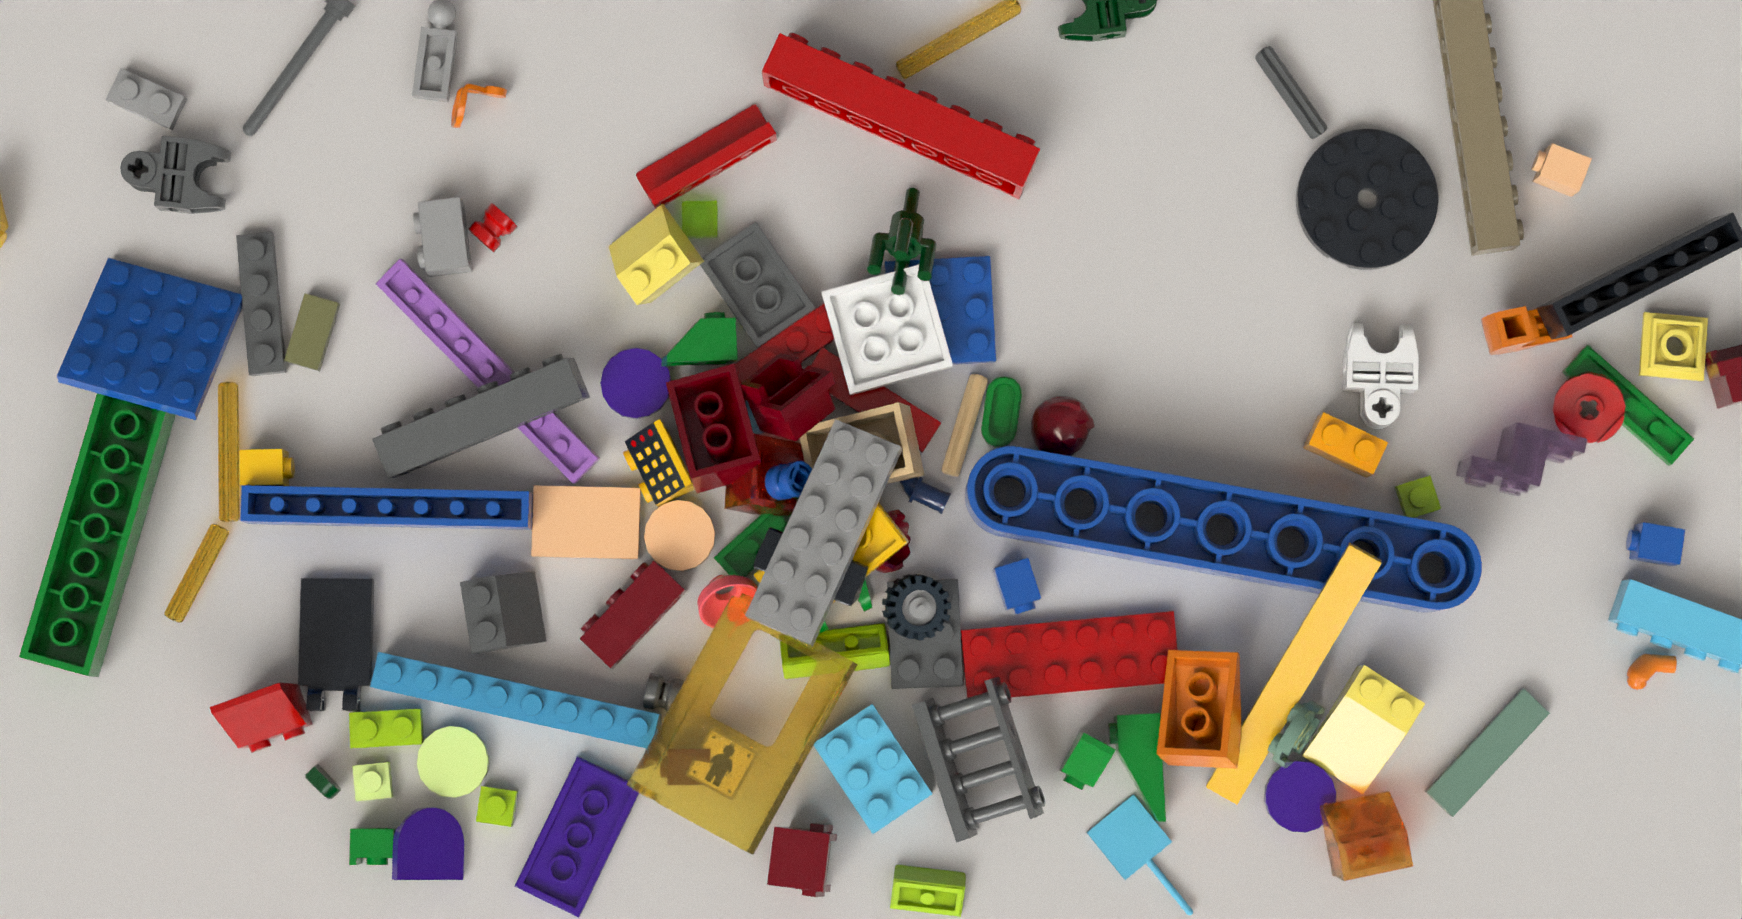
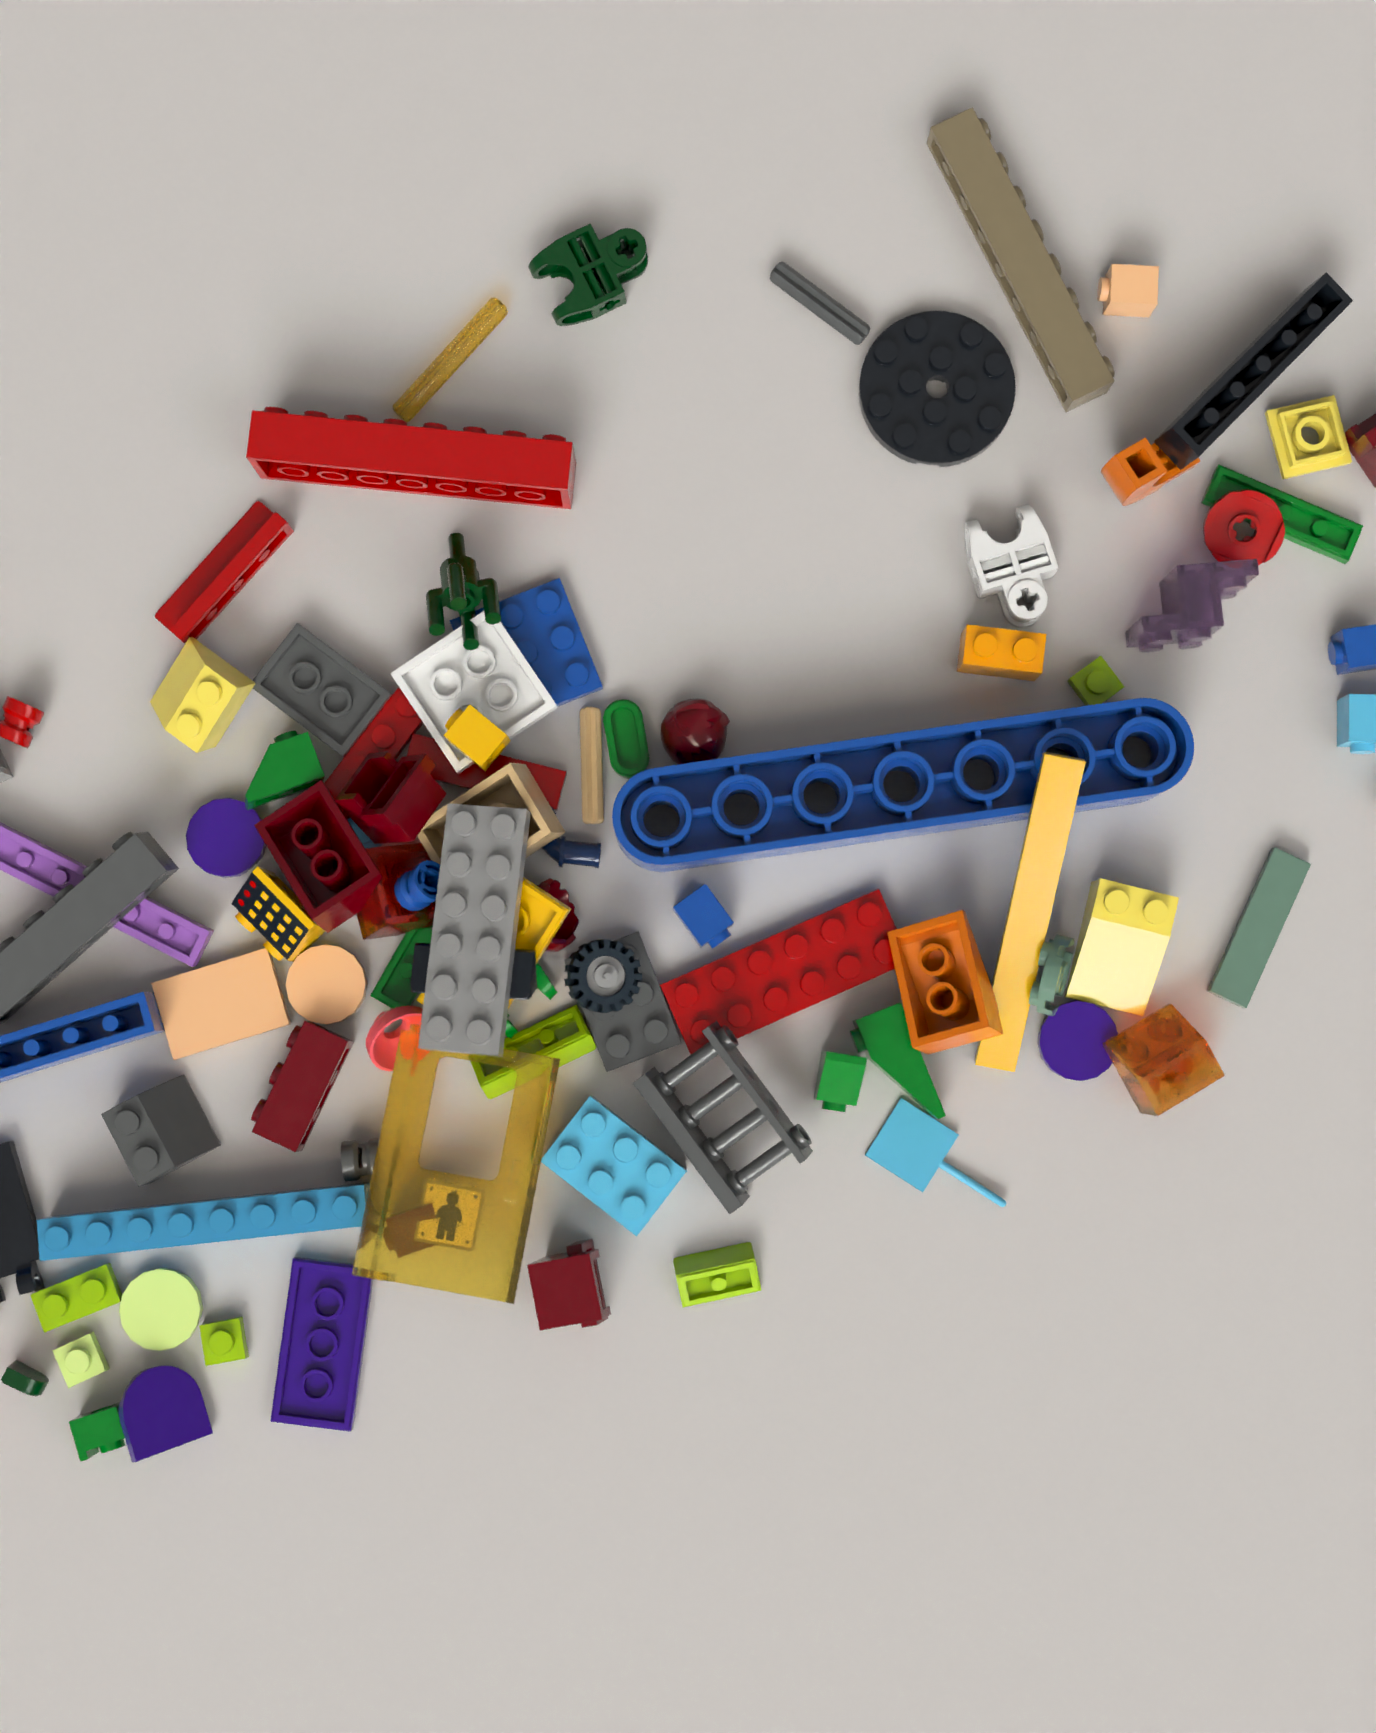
camera: 20 degrees left, 0 degrees up
(700, 219) = (238, 640): clear neon green plate -> none
(876, 370) = (475, 736): none -> yellow brick

